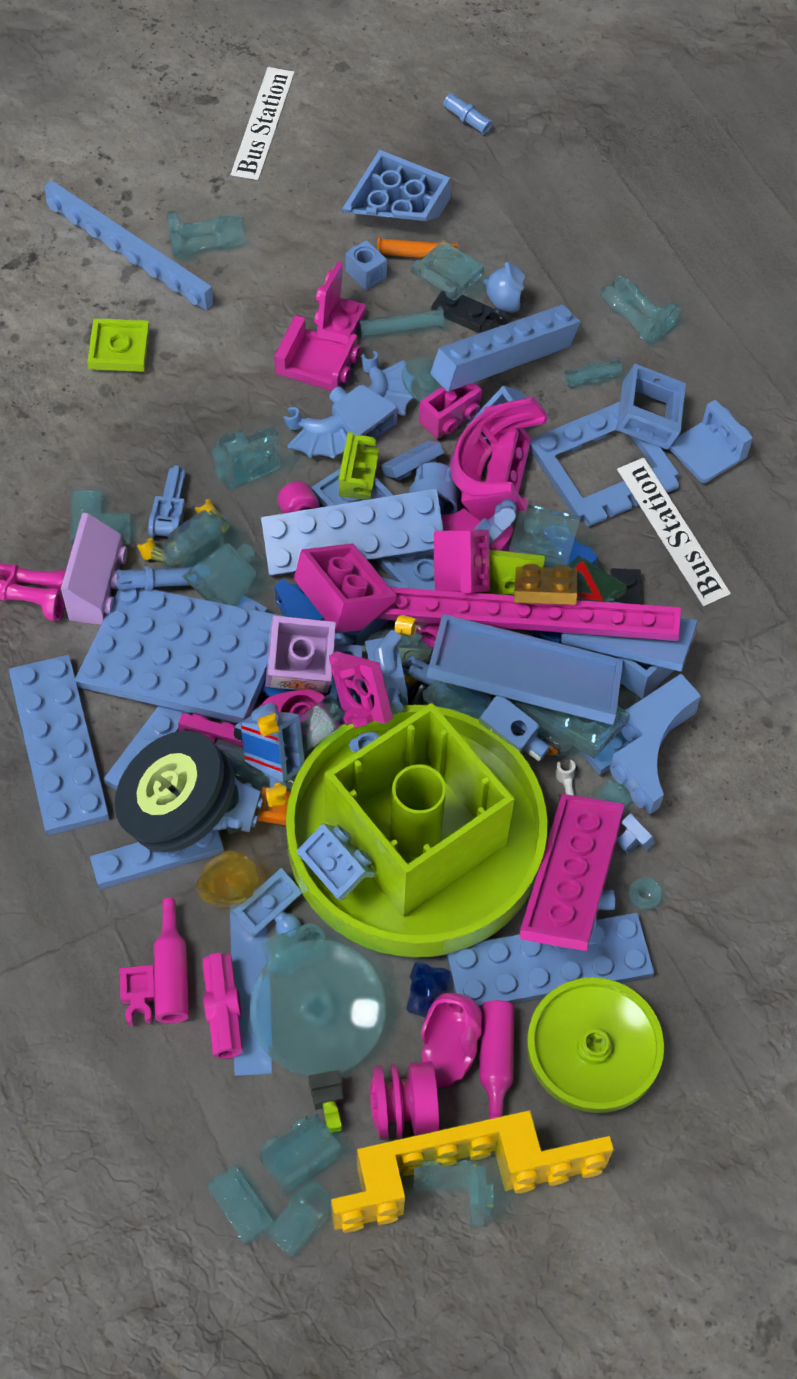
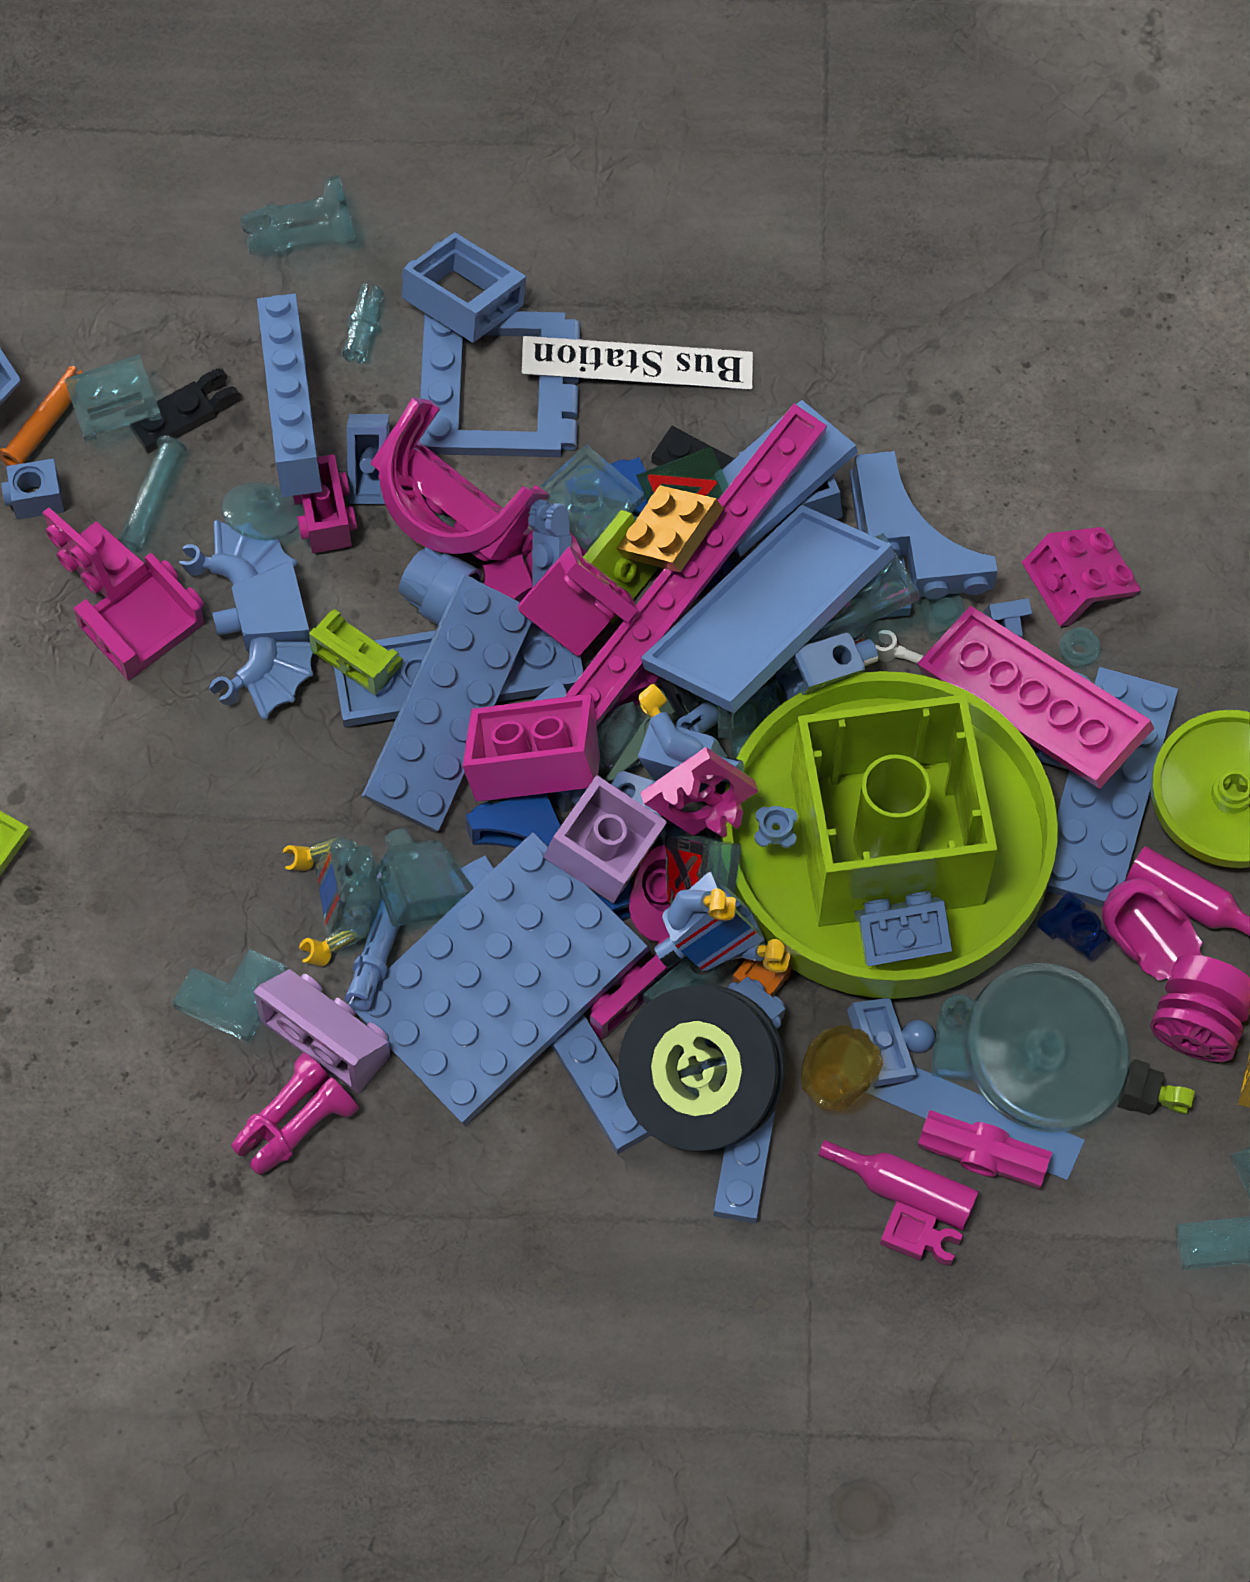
camera: 60 degrees left, 5 degrees up
(58, 745) = (534, 1182): medium blue plate -> none
(170, 509) = (271, 902): medium blue connector -> none
(246, 458) = (258, 771): clear light blue plate -> none
(296, 497) = (354, 746): dark pink head -> none
(299, 1153) = (1200, 1151): clear light blue hinge -> none
(401, 466) = (368, 587): medium blue plate -> none
(505, 288) = (183, 349): medium blue piece -> none
(703, 866) = (1077, 570): none -> dark pink bracket
(712, 444) = (550, 252): medium blue bracket -> none

